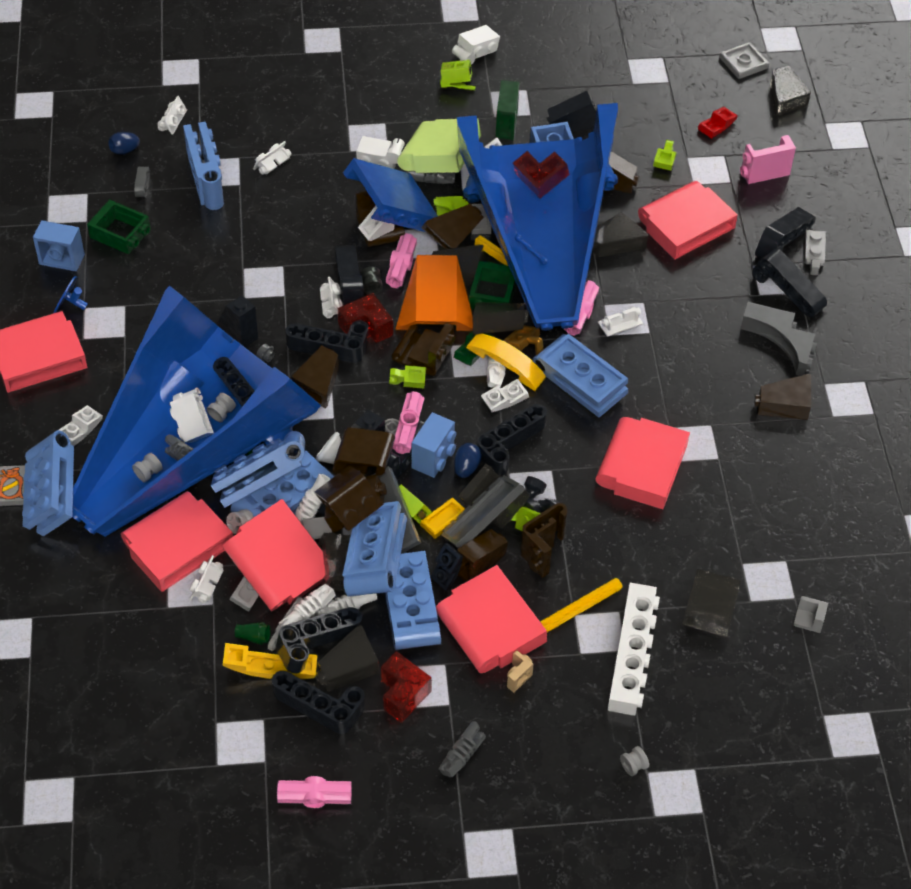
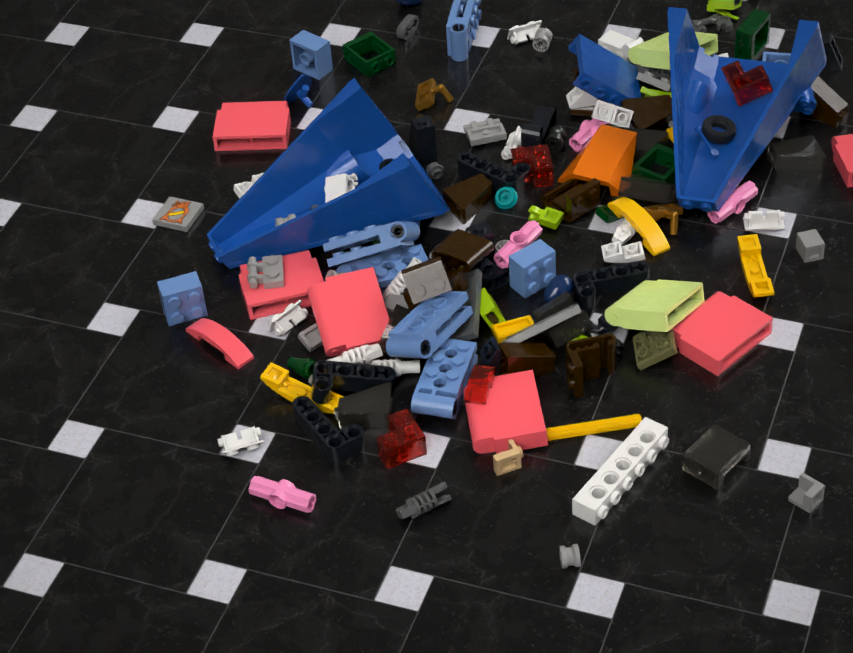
camera: 30 degrees right, 10 degrees down
(48, 483) = (202, 215): medium blue hinge -> none
(82, 594) = (182, 298): none -> medium blue brick
(146, 627) = (222, 339): none -> coral slope
(166, 530) = (272, 272): none -> light grey plate
(208, 260) = (426, 94): none -> pearl gold plate
(230, 753) = (232, 444): none -> white hinge
(294, 163) = (542, 39): none -> light grey wheel
(295, 293) = (485, 131): none -> light grey plate
(356, 365) = (506, 197): none -> teal hat
(420, 239) = (612, 114): none -> white slope
(438, 187) = (653, 80): none -> light grey plate
(456, 599) = (479, 384): none -> clear red slope
(463, 96) = (720, 22): none -> dark grey helmet
(539, 223) = (722, 122): none -> black tyre
(577, 453) = (656, 305): none -> yellowish green piece
(582, 374) = (701, 250): medium blue hinge -> none
(593, 496) = (653, 347): none -> olive tile
(638, 379) = (753, 266): none -> yellow slope
(678, 337) = (810, 245): none -> light grey panel

